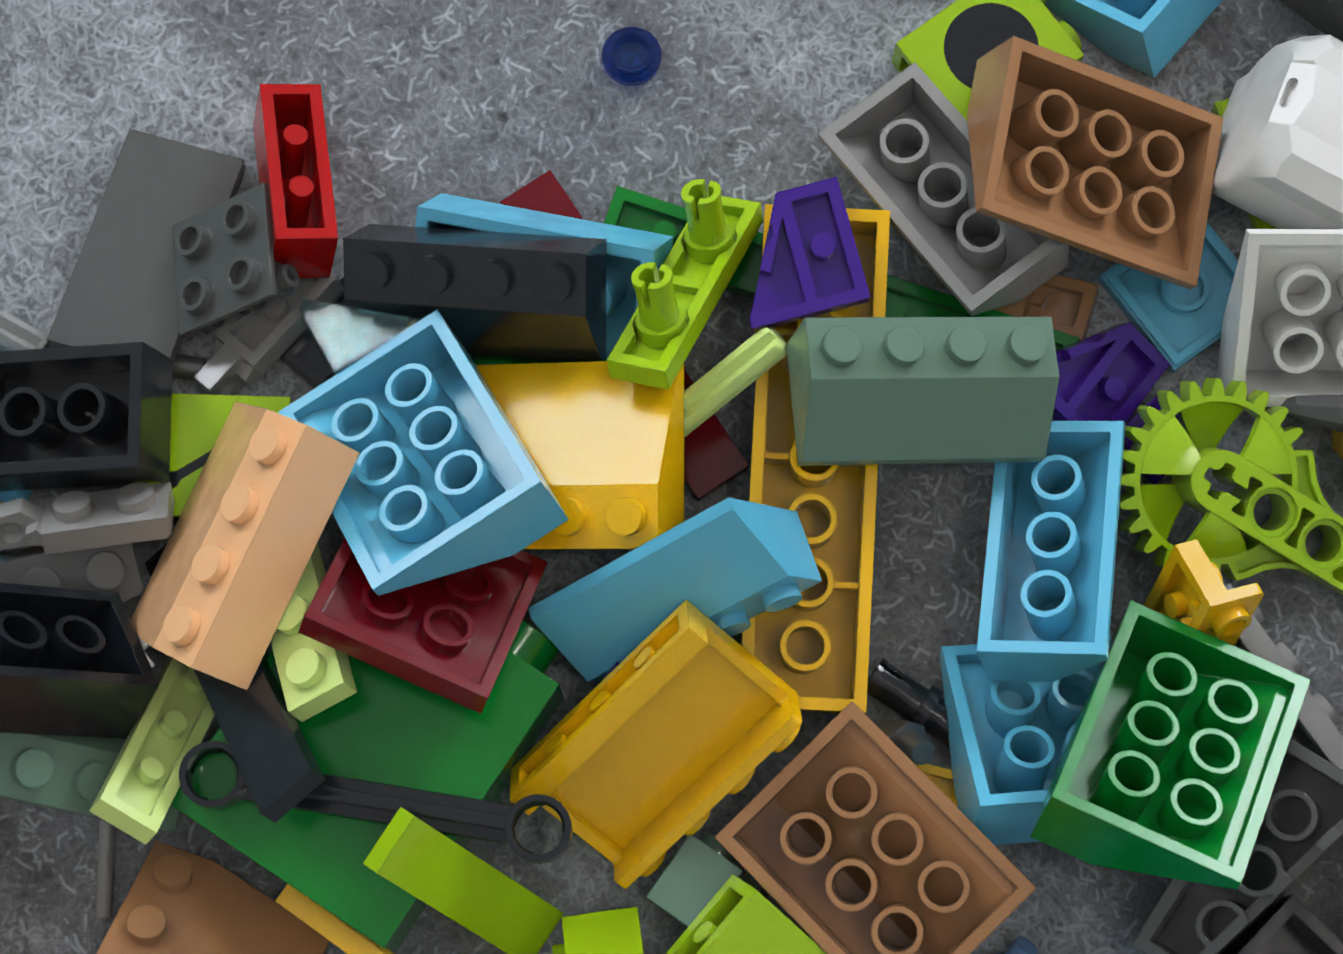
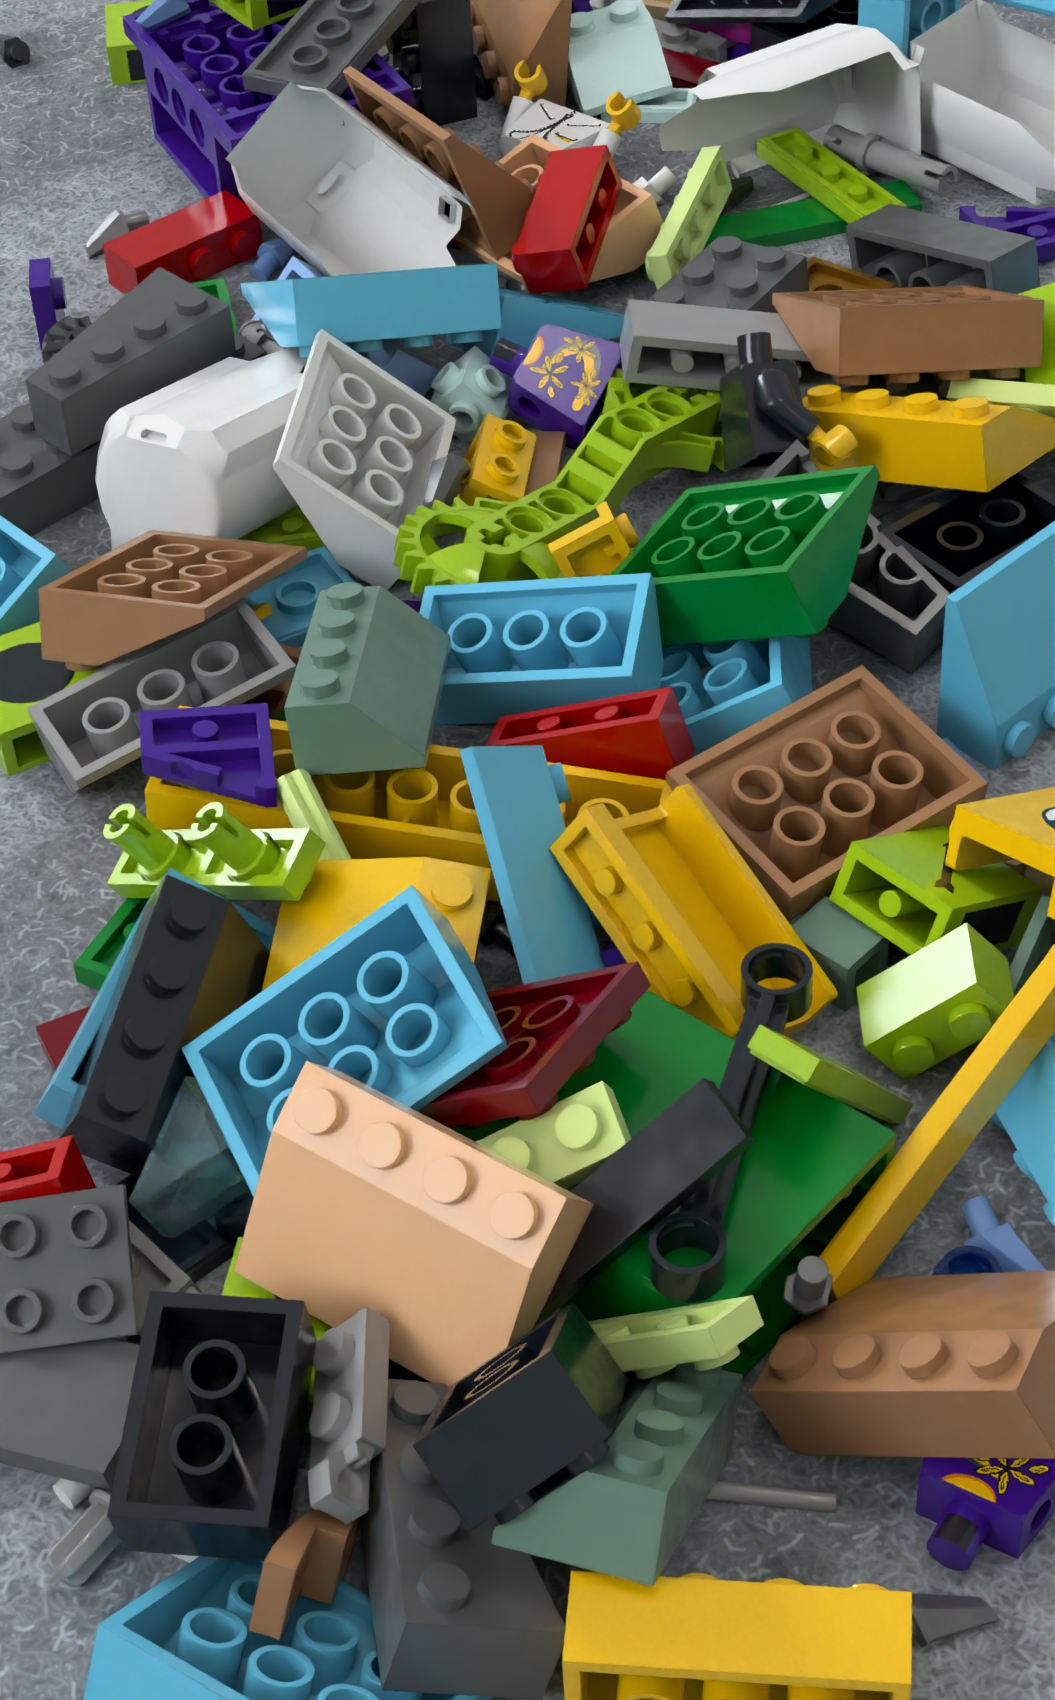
camera: 80 degrees left, 35 degrees down
(253, 882) = (809, 1287): none -> dark grey bar
(919, 621) = (616, 734): none -> red brick

